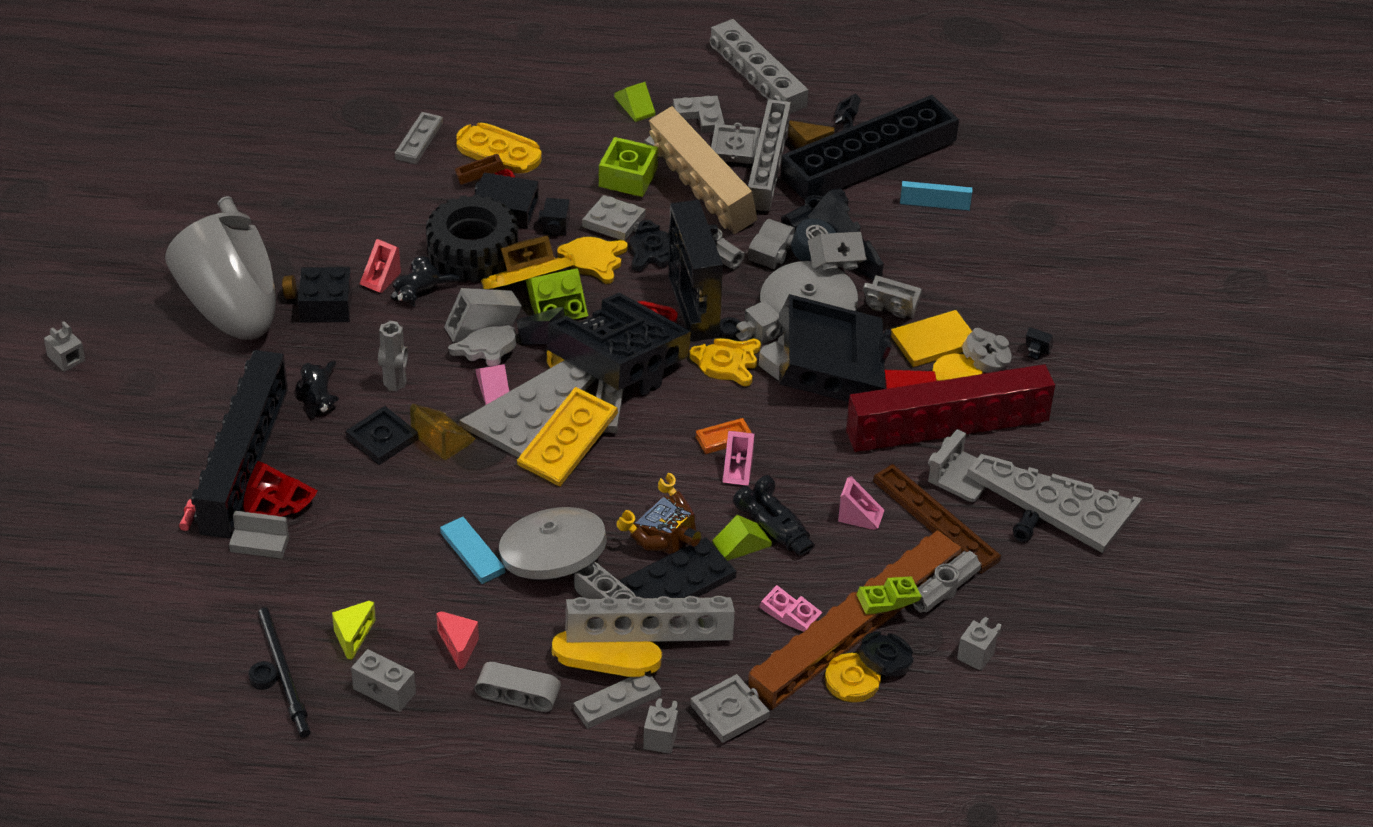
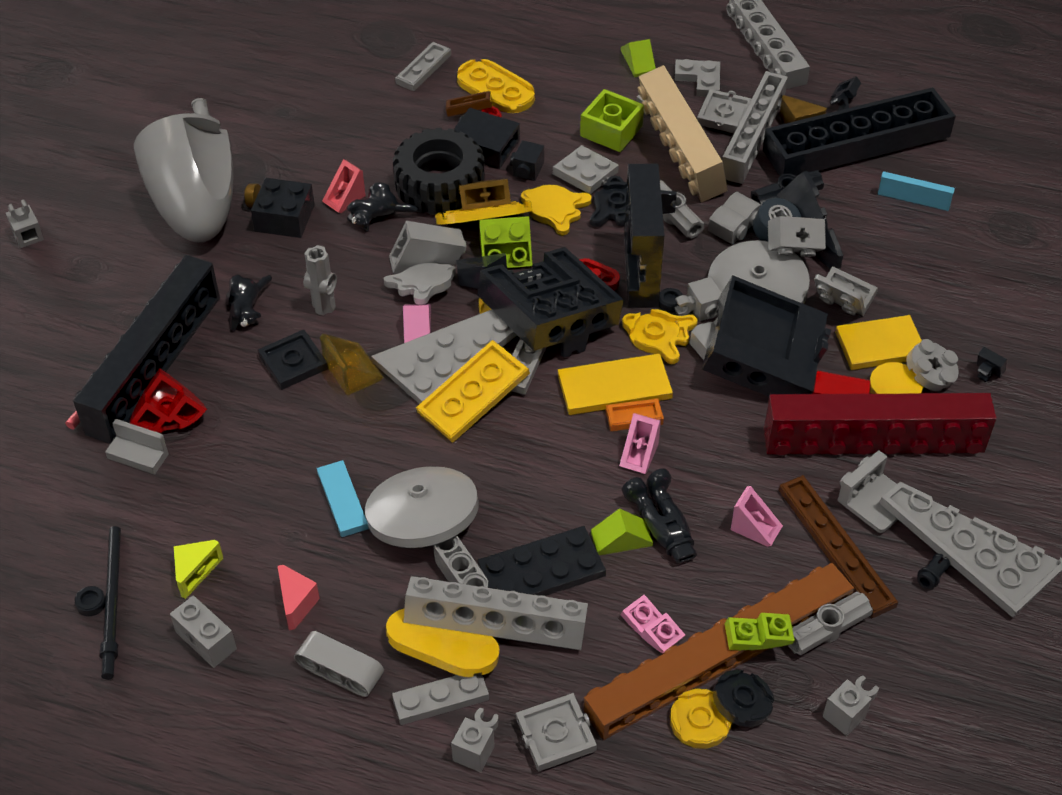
camera: 15 degrees right, 5 degrees up
(666, 524) = (543, 505): torso -> none
(697, 409) = (614, 382): none -> yellow tile

